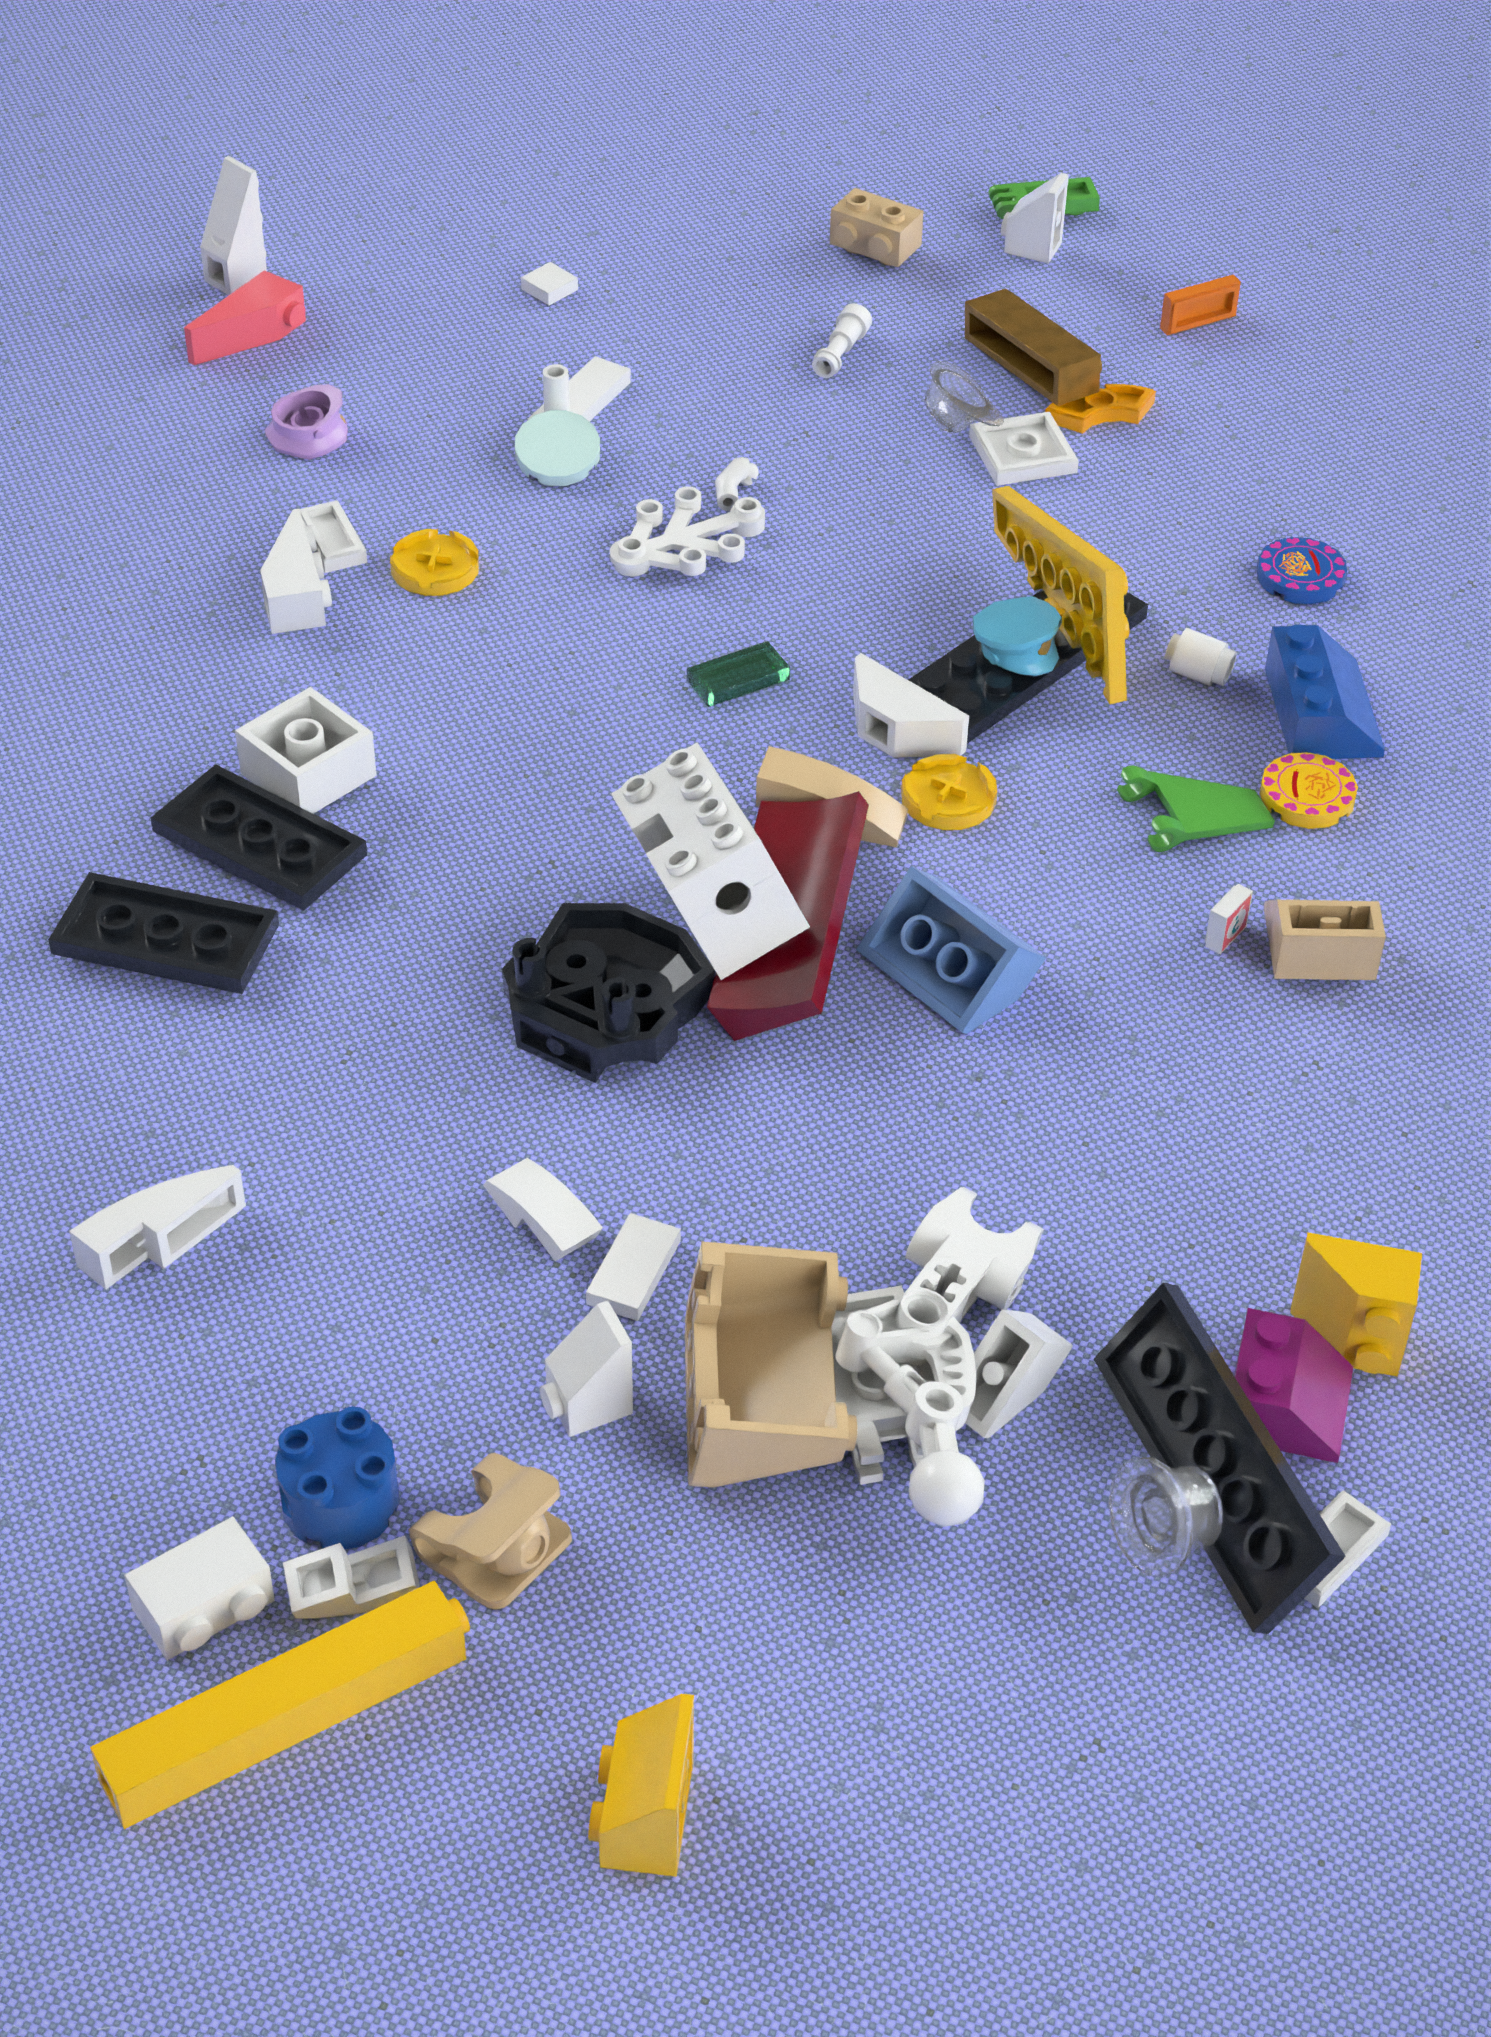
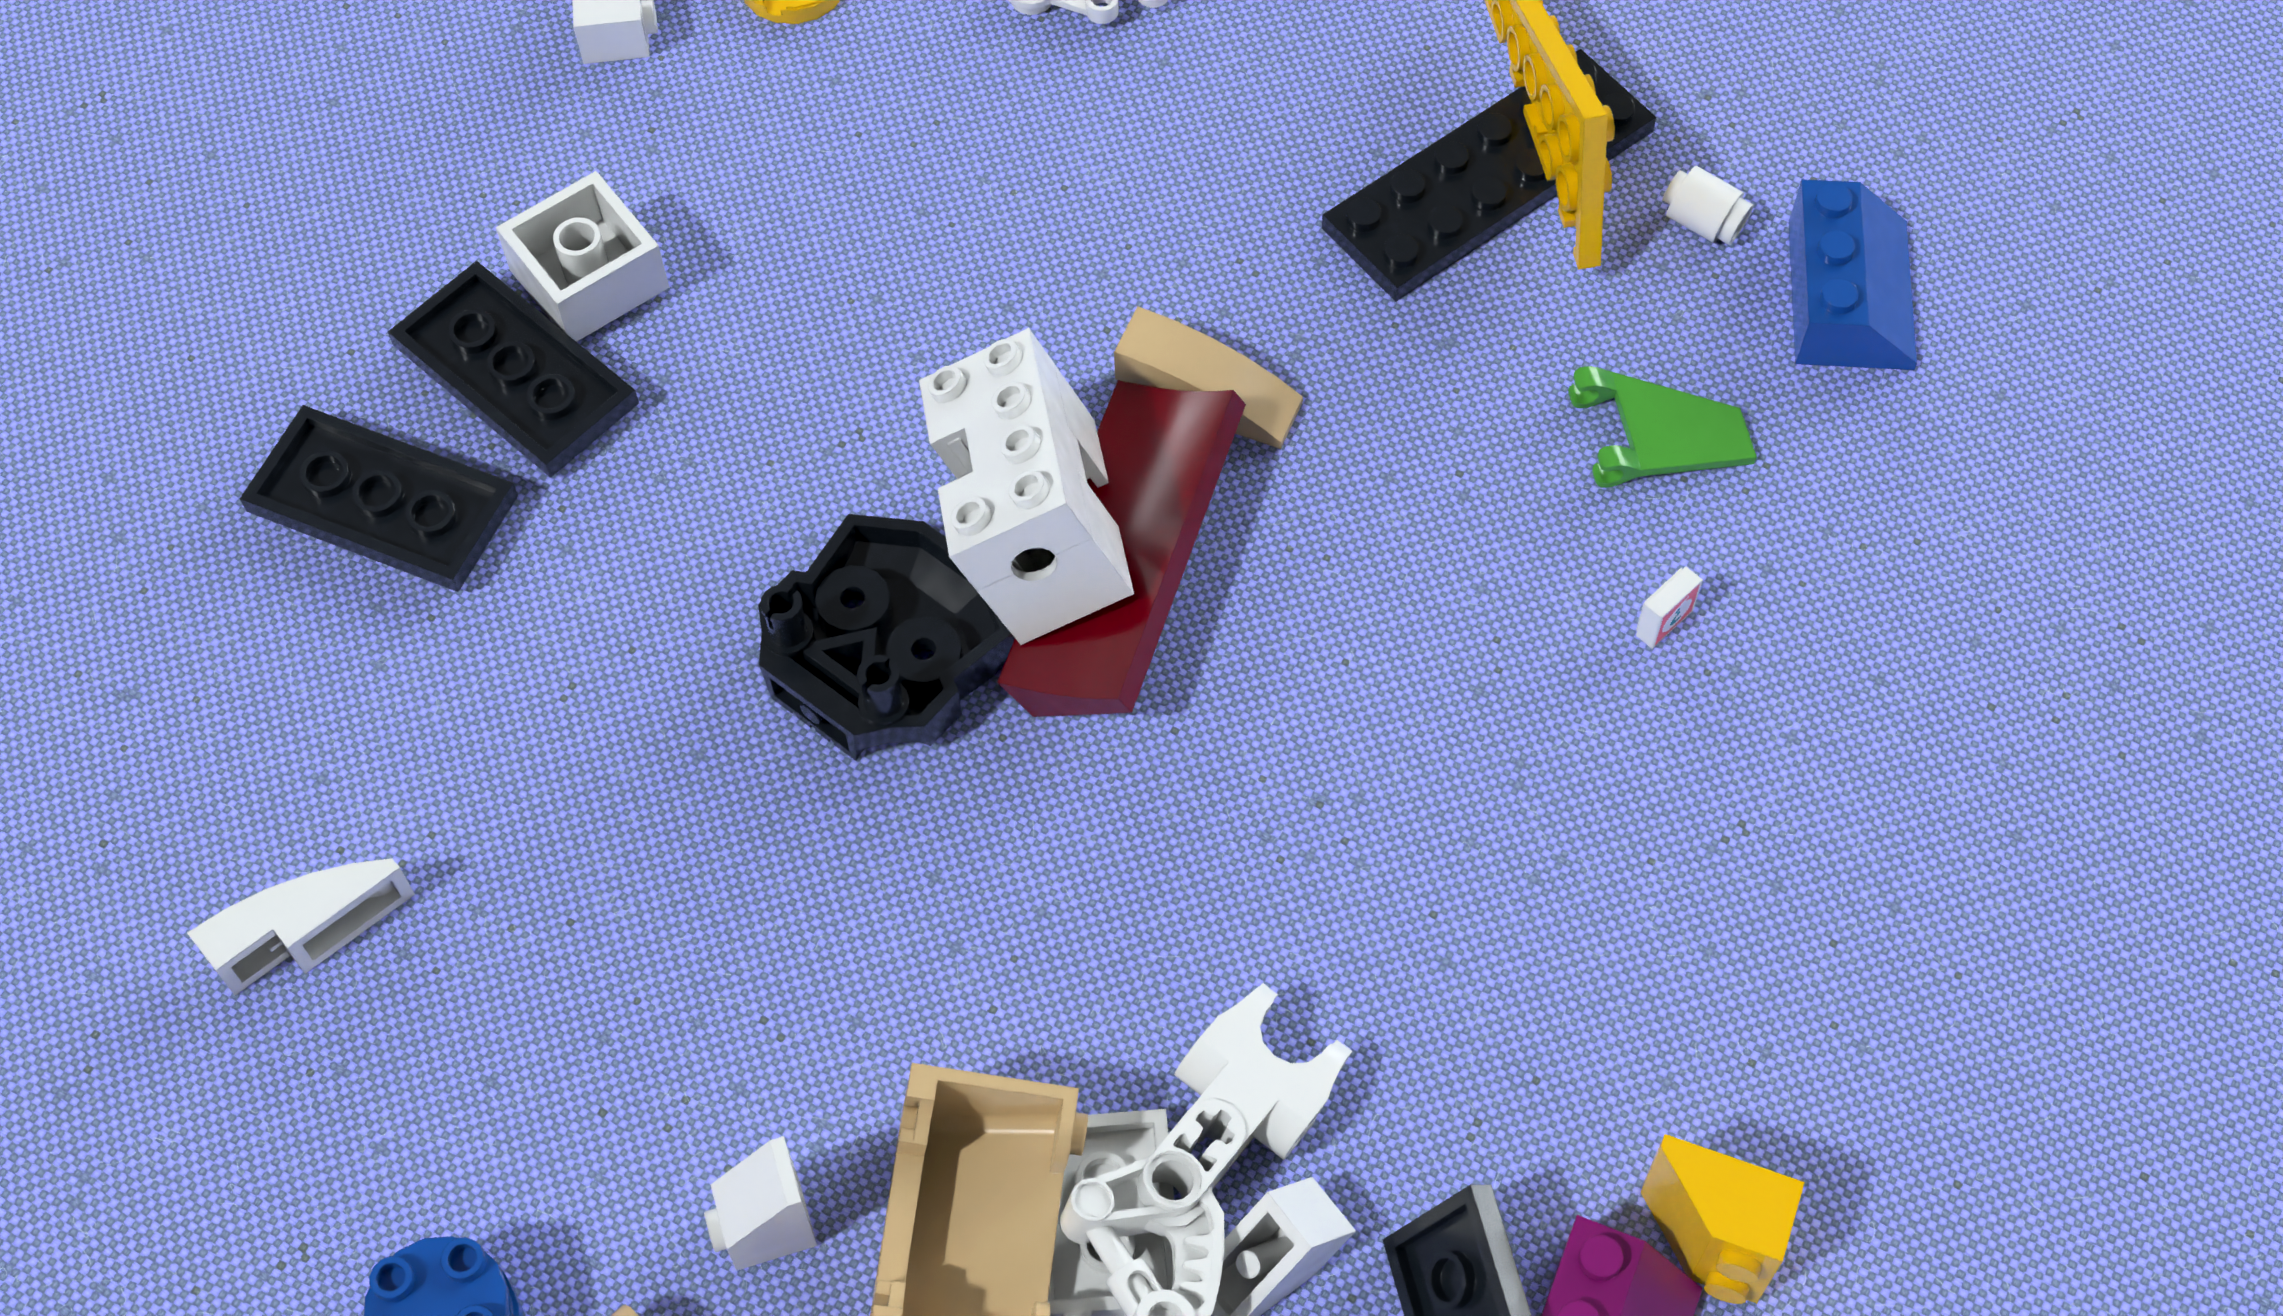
camera: 10 degrees right, 15 degrees up
(546, 1205) = (756, 946): white slope -> none
(634, 1265) = (851, 1039): white tile -> none
(738, 673) = (1130, 175): clear green tile -> none
(904, 716) = (1318, 261): white slope -> none
(949, 792) = (1358, 376): yellow tile -> none
(949, 951) = (1313, 621): medium blue slope -> none
(1019, 635) = (1479, 161): medium azure hat -> none
(1301, 570) = (1862, 78): blue tile -> none
(1308, 790) = (1808, 415): yellow tile -> none
(1325, 939) = (1783, 647): tan slope -> none

